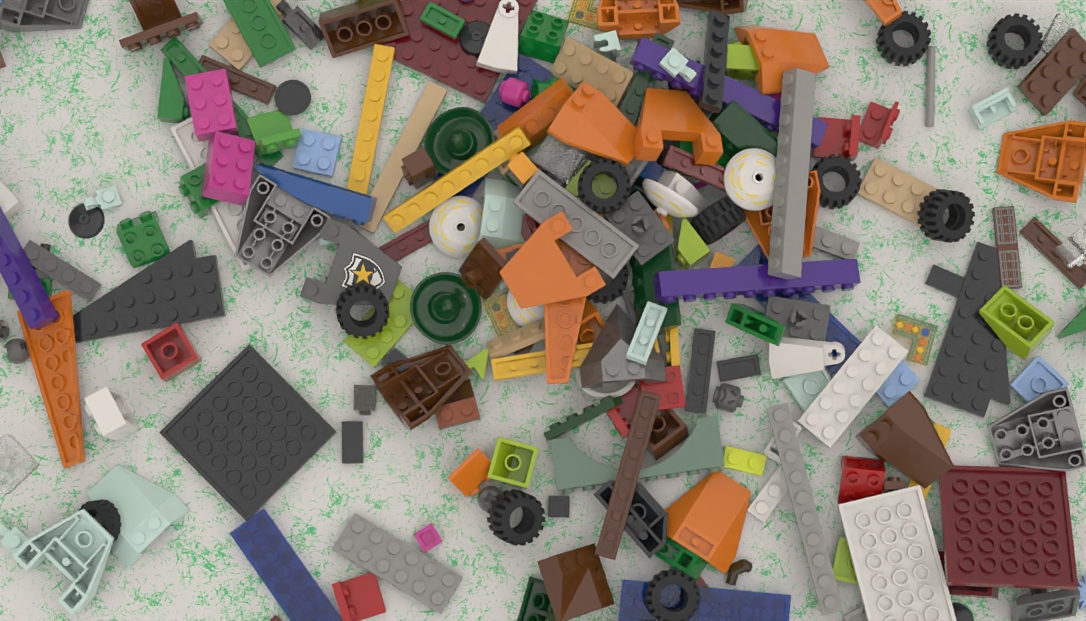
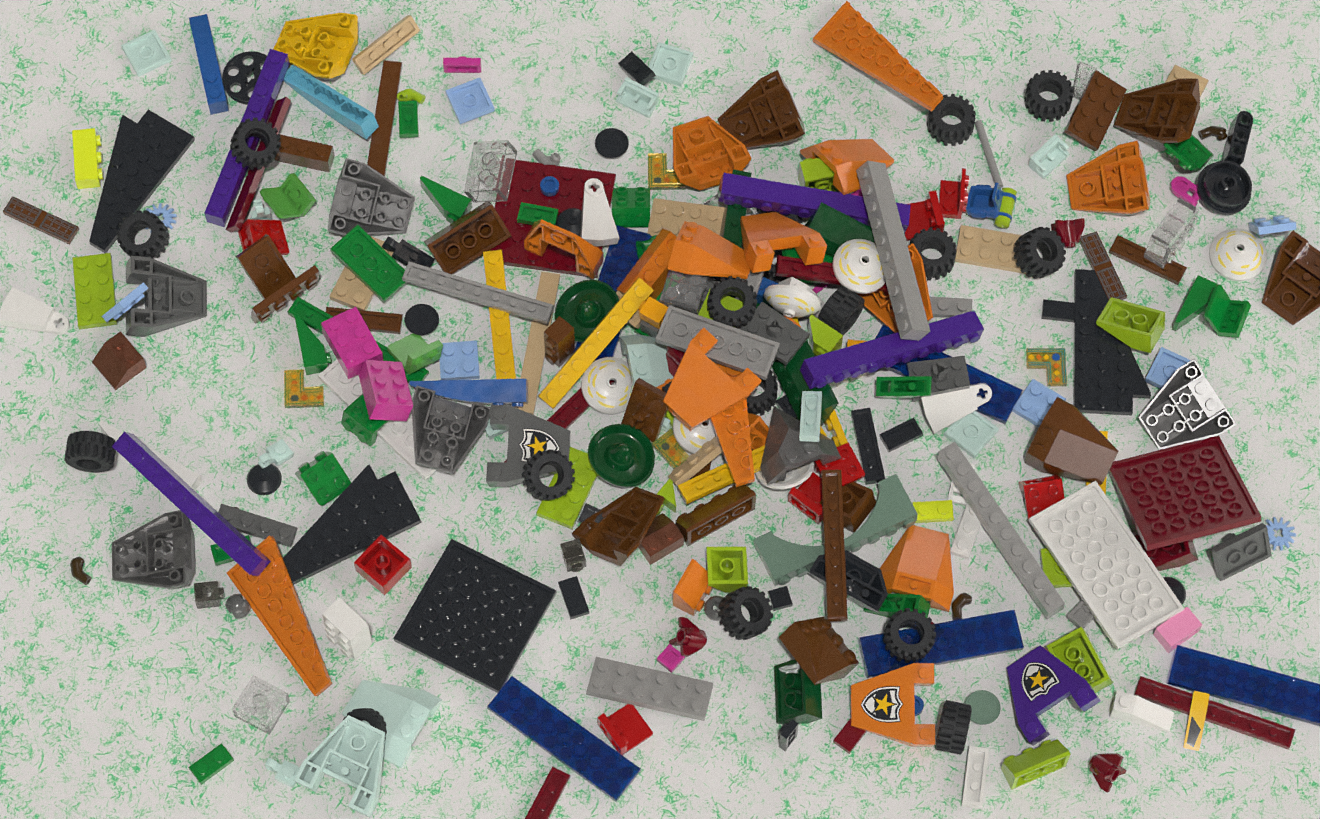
camera: 20 degrees left, 15 degrees down
(145, 141) = (299, 396): none -> clear yellow tile
(355, 88) = (478, 292): none -> light grey tile
(453, 524) = (689, 637): none -> dark red brick
(475, 82) = (543, 233): none -> orange wedge
(514, 92) = (622, 256): dark pink head -> none
(520, 398) = (716, 513): none -> reddish brown slope
(575, 420) = (782, 502): dark green plate -> none
(608, 43) = (692, 192): light aqua hinge -> none
(675, 64) = (760, 186): light aqua plate -> none
(714, 61) = (793, 177): black plate -> none
(728, 397) = (900, 461): dark grey head -> none
(852, 386) = (1007, 418): white plate -> none
(894, 484) = (1072, 488): reddish brown plate -> none
(915, 144) = (992, 203): none -> blue piece
(984, 199) = (1069, 231): none -> dark red brick

